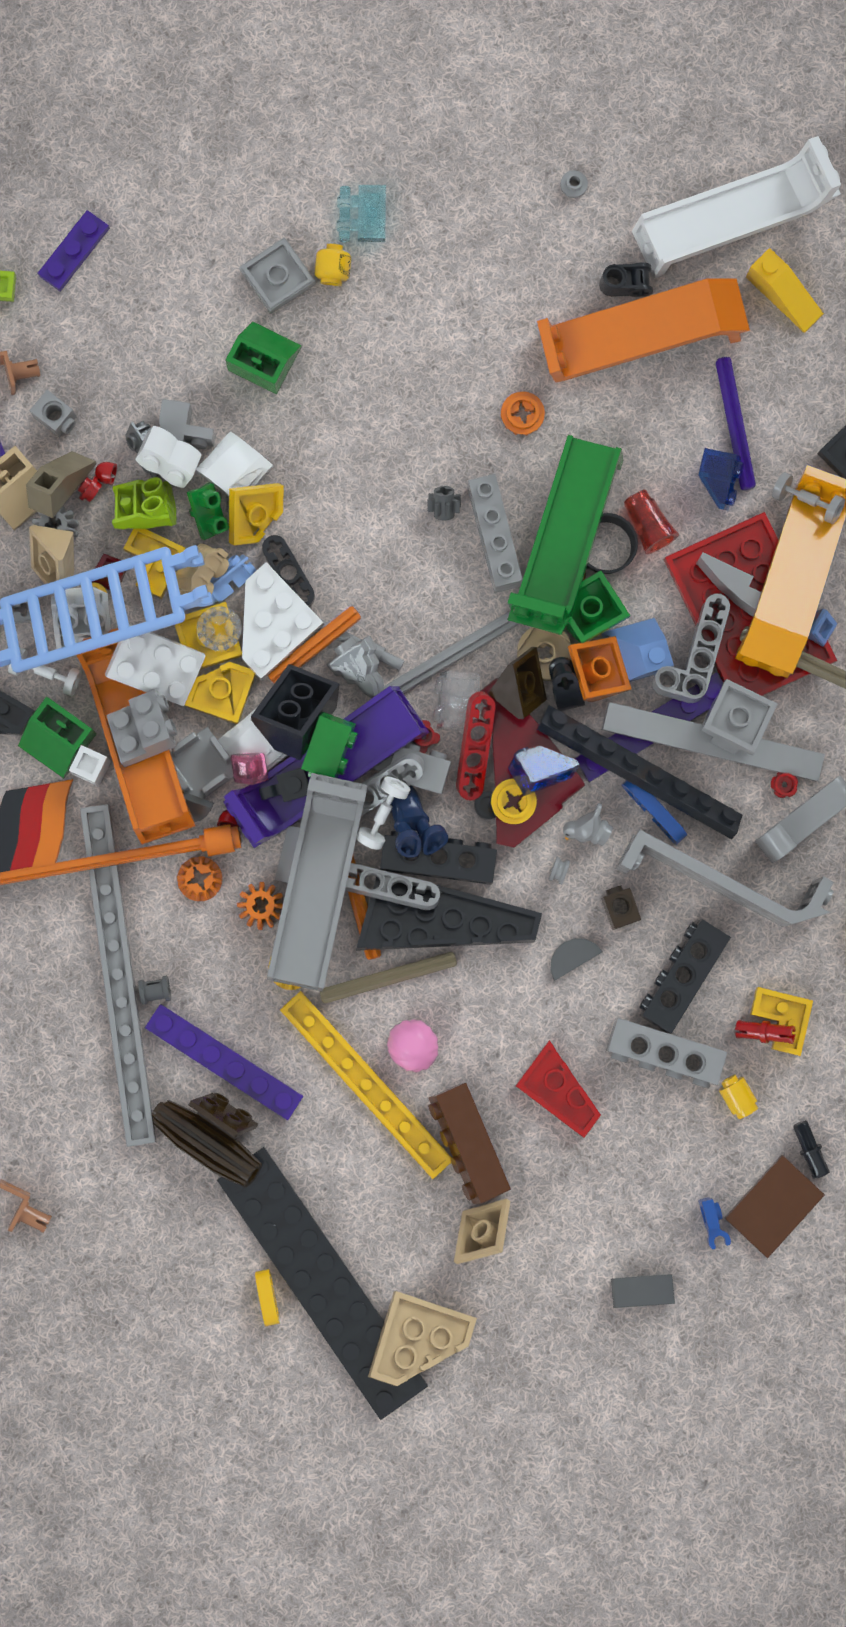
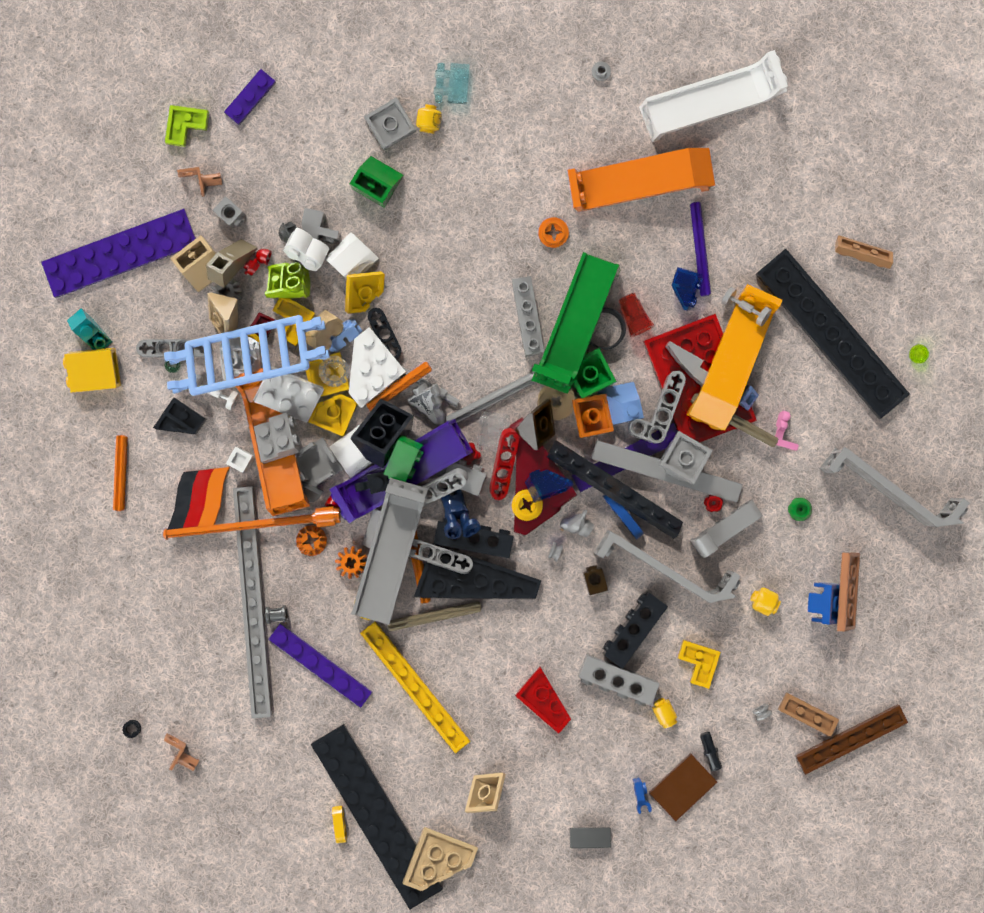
camera: 10 degrees right, 5 degrees up
(55, 737) = (219, 438): green slope -> none
(207, 511) = (331, 288): green hips -> none
(211, 1135) = (308, 714): dark brown plate -> none
(249, 768) = (349, 468): clear pink slope -> none
(371, 837) = (428, 522): white wheel -> none
(413, 1045) = (448, 663): bright pink hair -> none
(444, 503) = (494, 293): dark grey gear -> none
(468, 1143) = (480, 732): reddish brown brick -> none
(483, 806) = (506, 503): black tile -> none
(565, 684) = (568, 425): black piece -> none
(572, 955) = (559, 609): dark grey tile -> none
(632, 280) = (637, 142): black piece -> none
(765, 1031) = (686, 671): red pin -> none
(784, 290) = (742, 157): yellow slope -> none

